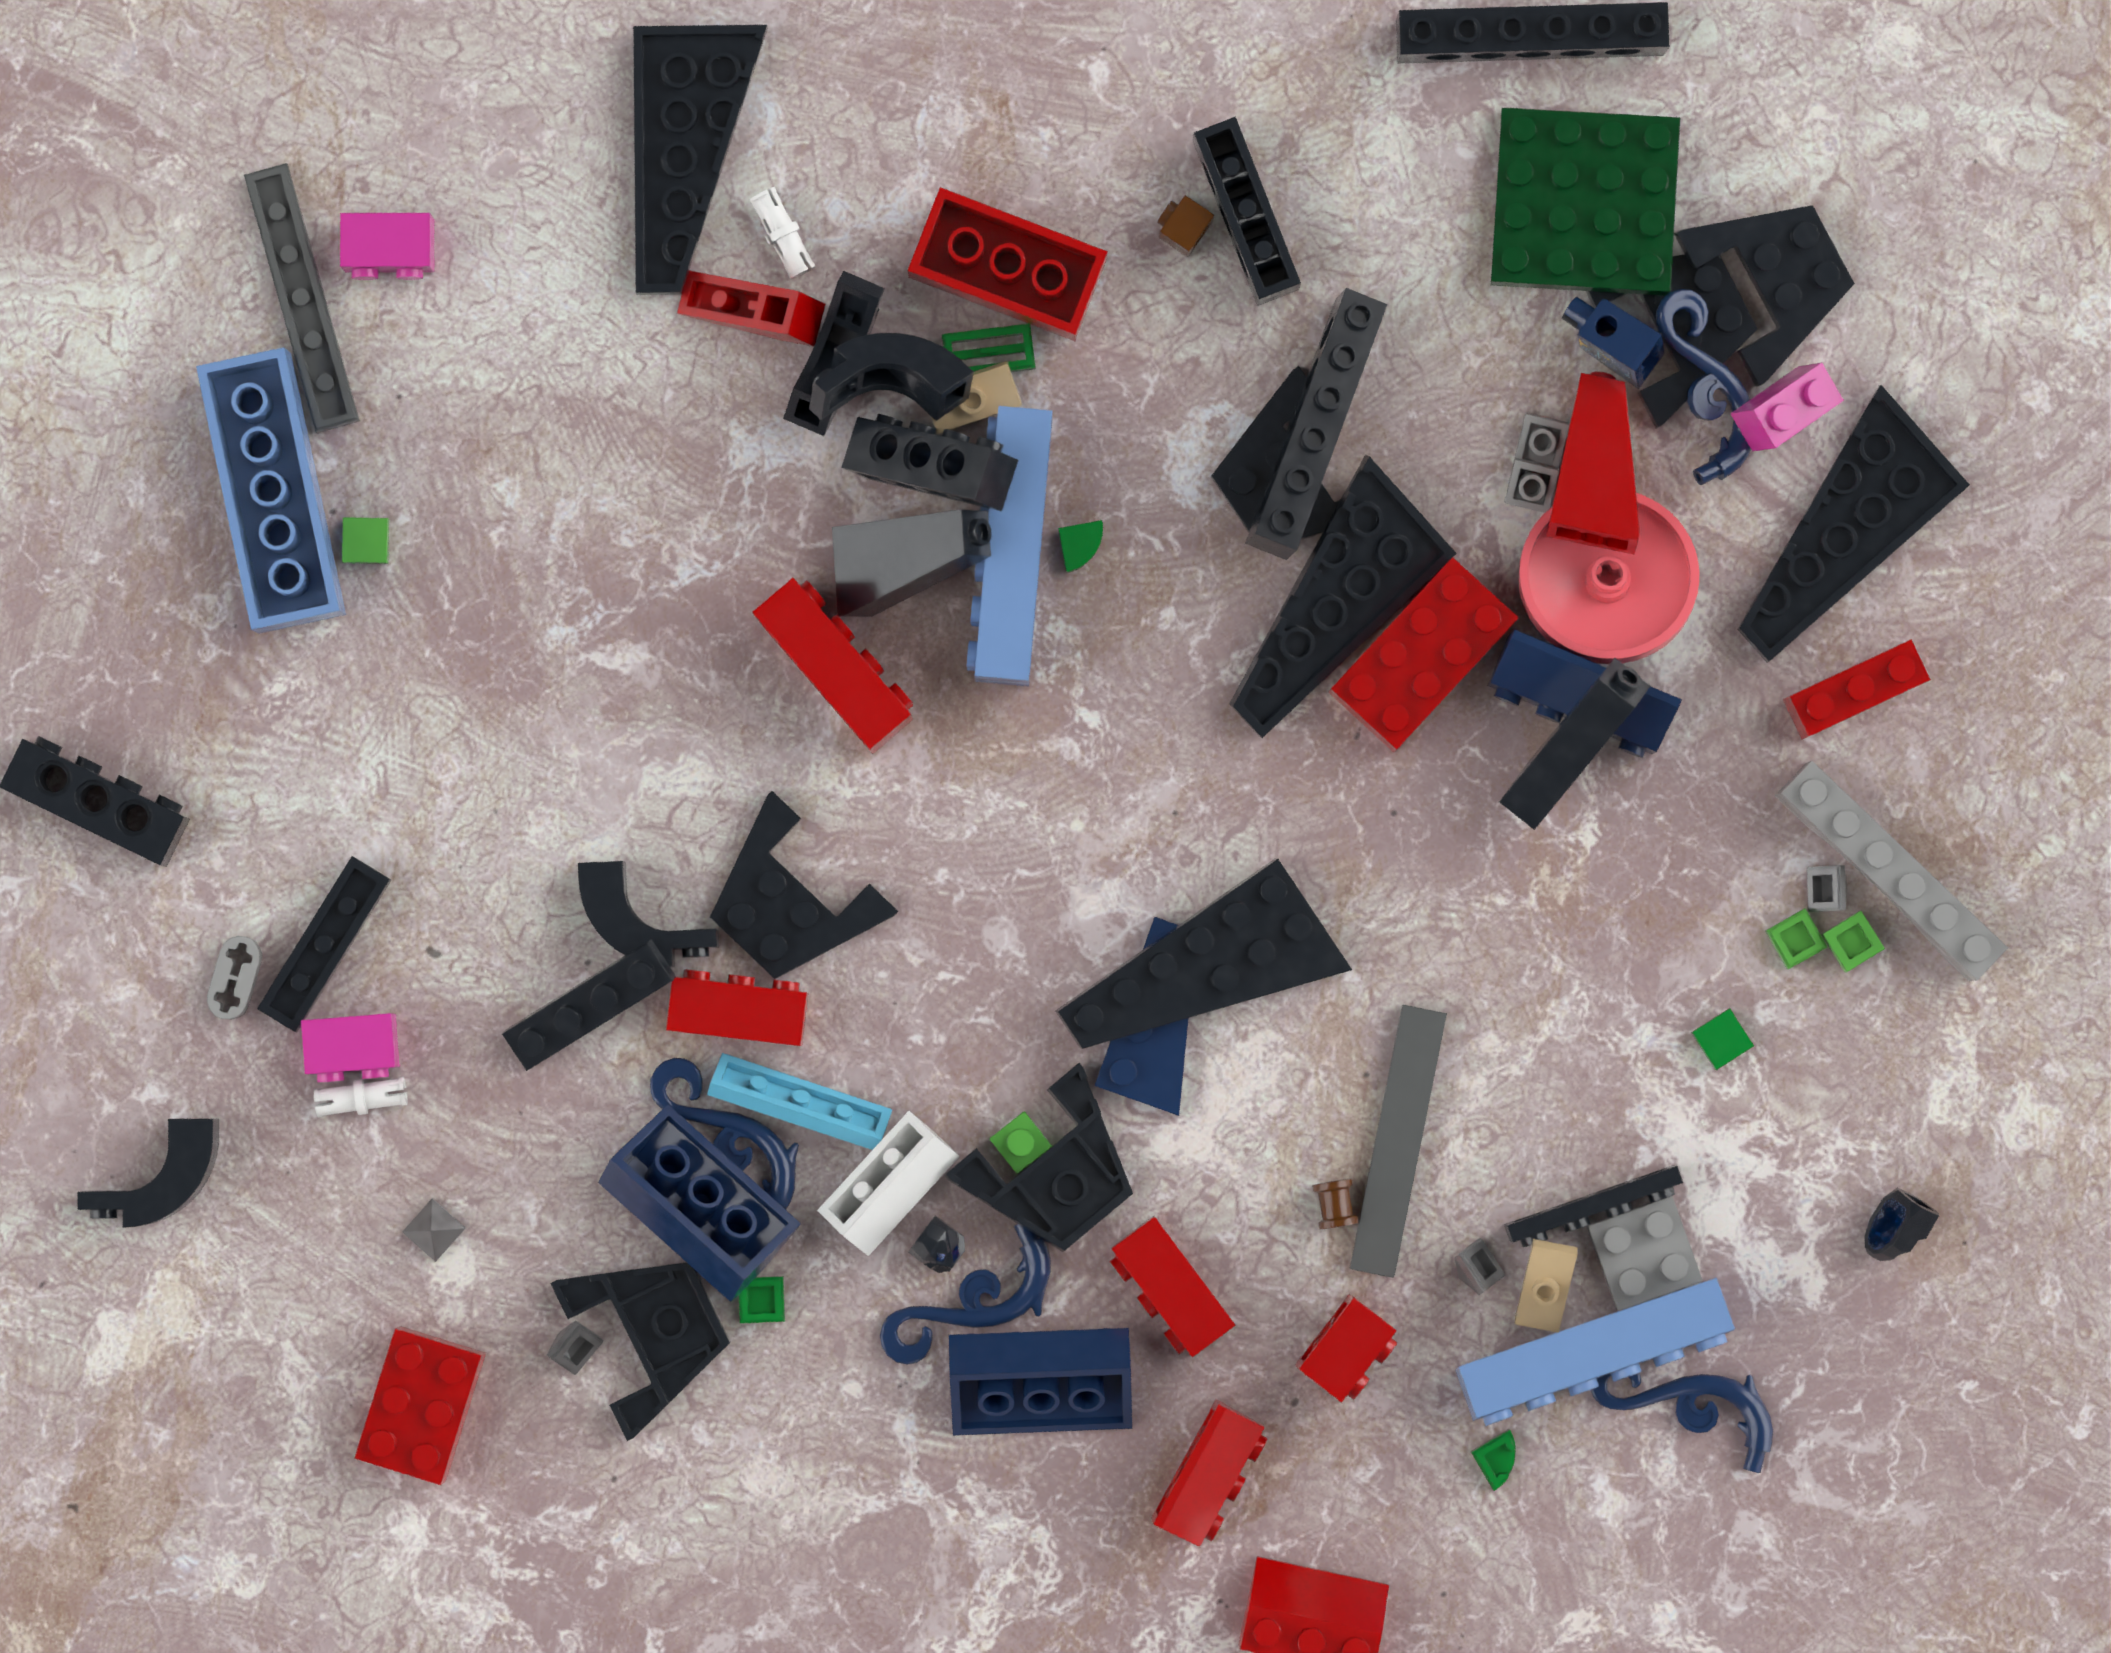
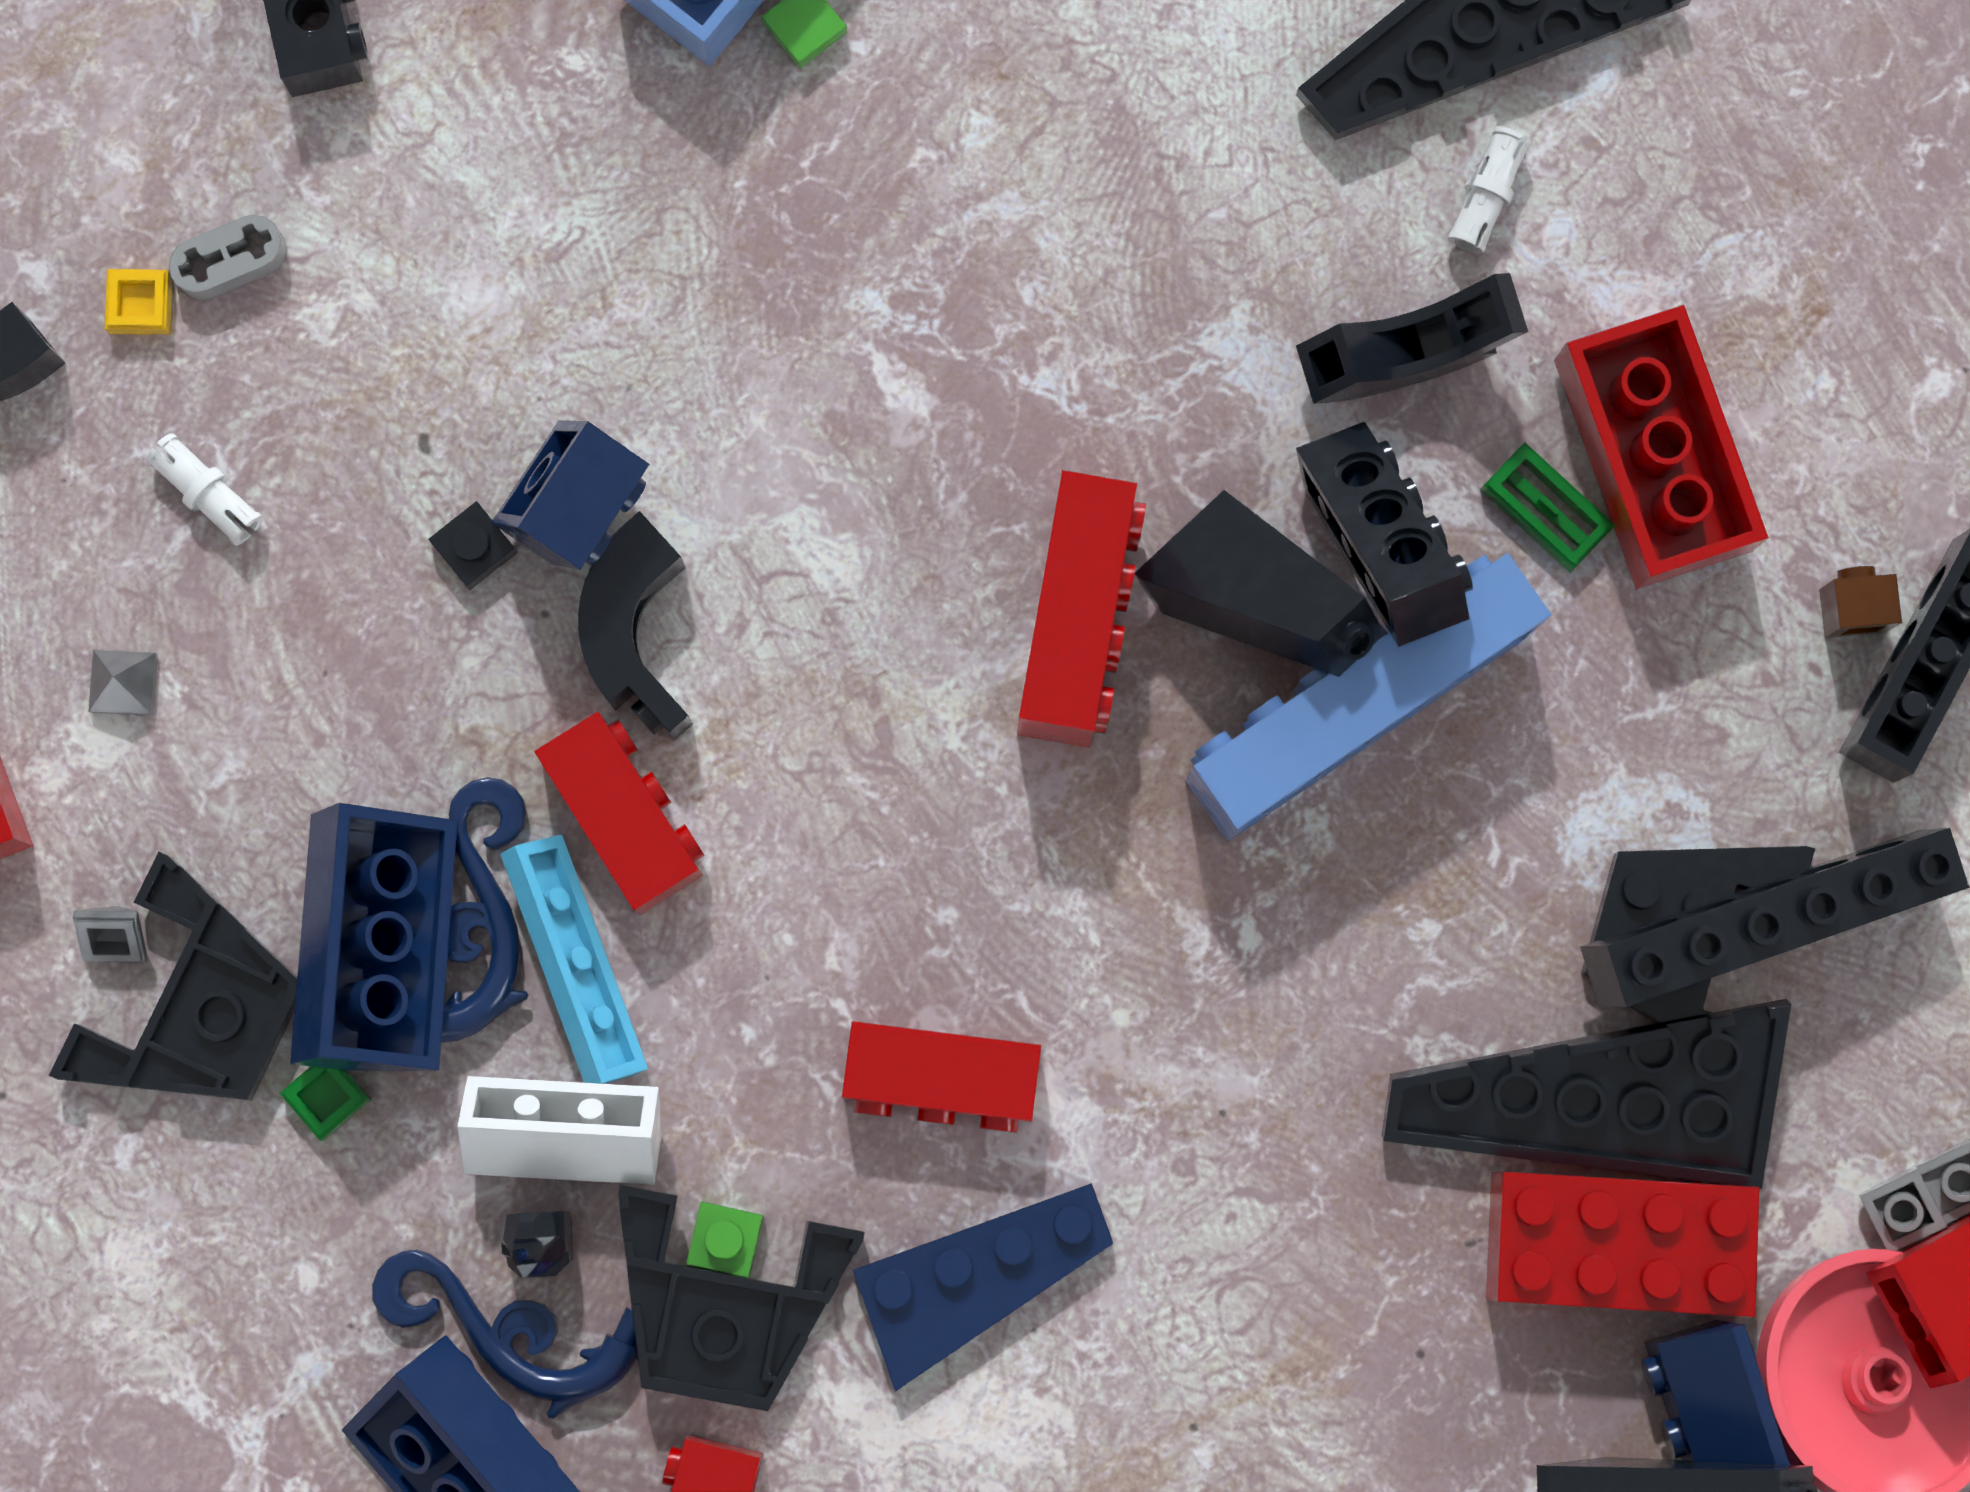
camera: 50 degrees right, 5 degrees down
(218, 1048) = (138, 301): none -> yellow tile
(324, 944) = (338, 320): black plate -> none
(350, 1045) = (250, 431): dark pink brick -> none
(516, 971) = (473, 545): none -> black plate
(538, 893) = (572, 494): none -> dark blue brick
(589, 1005) = (496, 648): black plate -> none
(752, 307) = (1386, 223): red slope -> none
(776, 914) = (760, 765): black wing -> none
(897, 364) = (1454, 407): black arch -> none
(989, 389) = (1486, 525): tan plate -> none
(1028, 951) = (941, 1075): none -> red brick
(1080, 543) = (1426, 771): green tile -> none
(1230, 952) = (1122, 1299): black wing -> none

